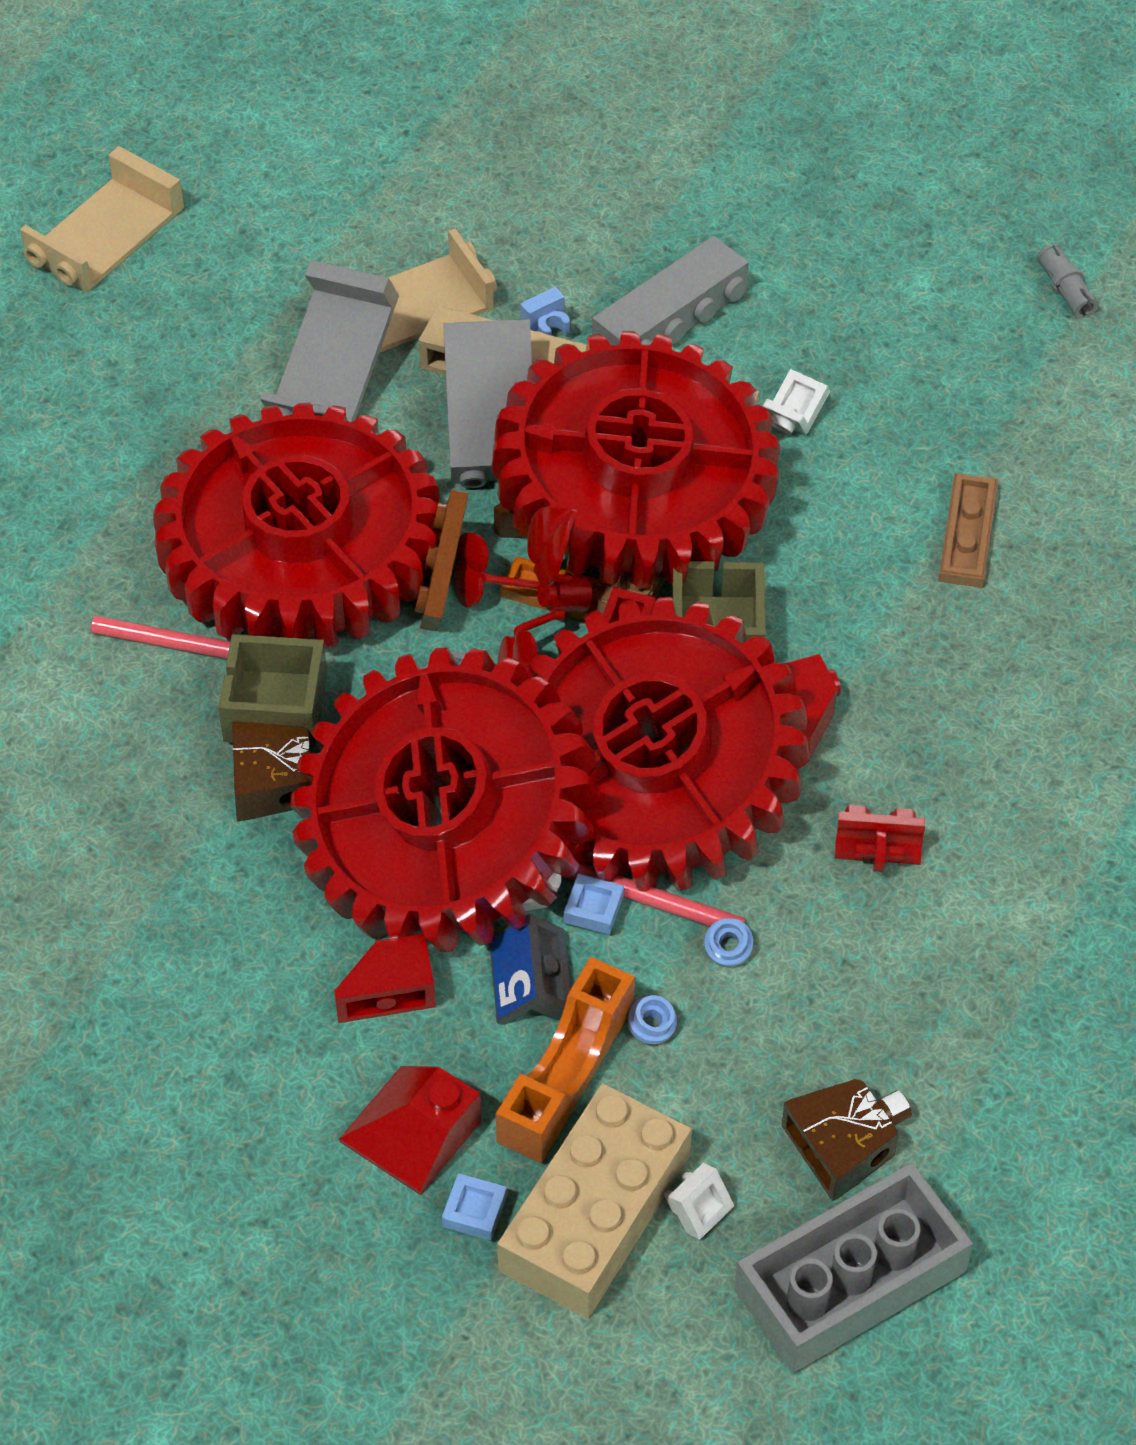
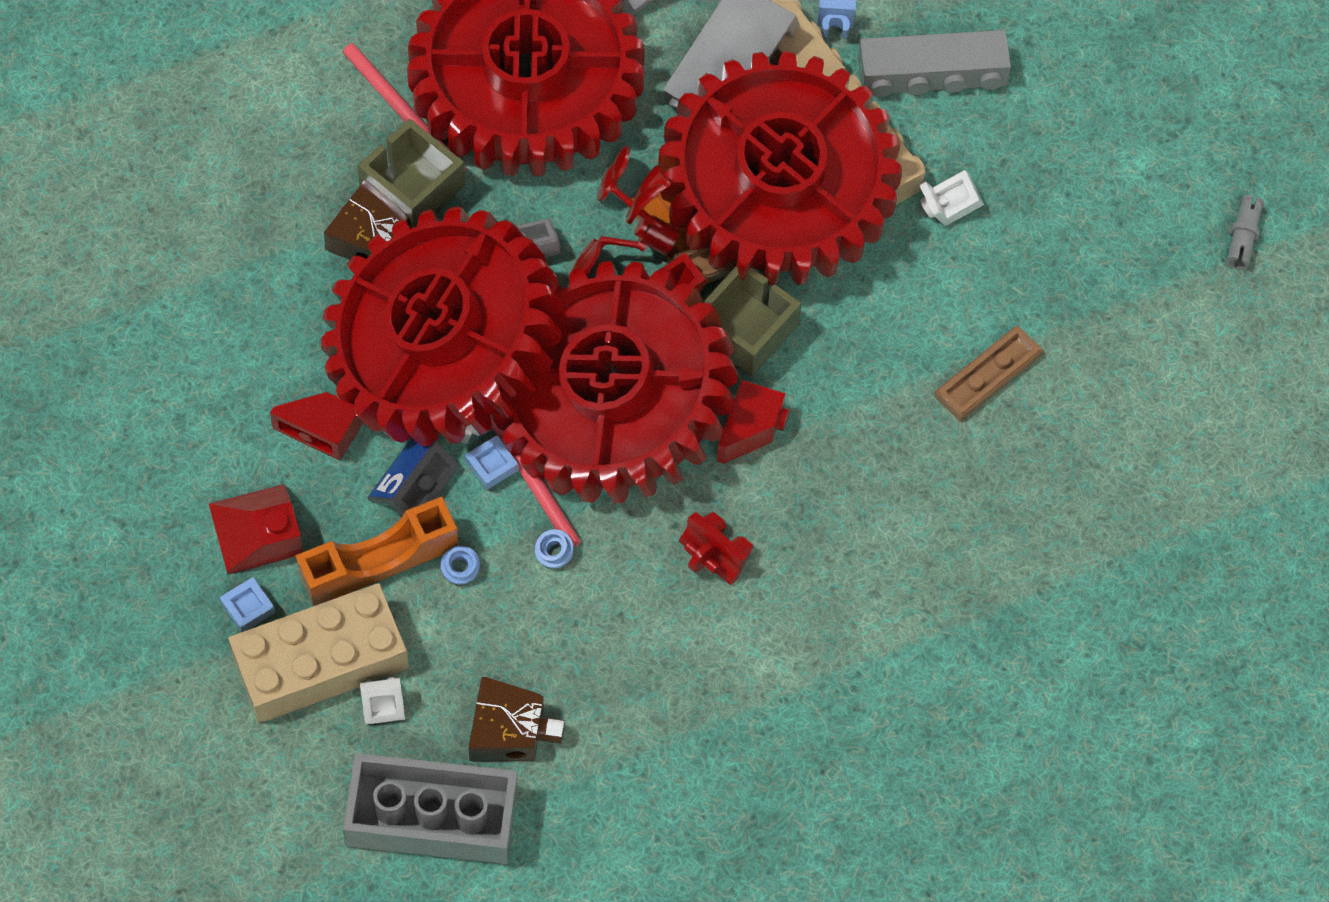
camera: 35 degrees right, 10 degrees up
(441, 560) = (573, 178): dark orange wing -> none

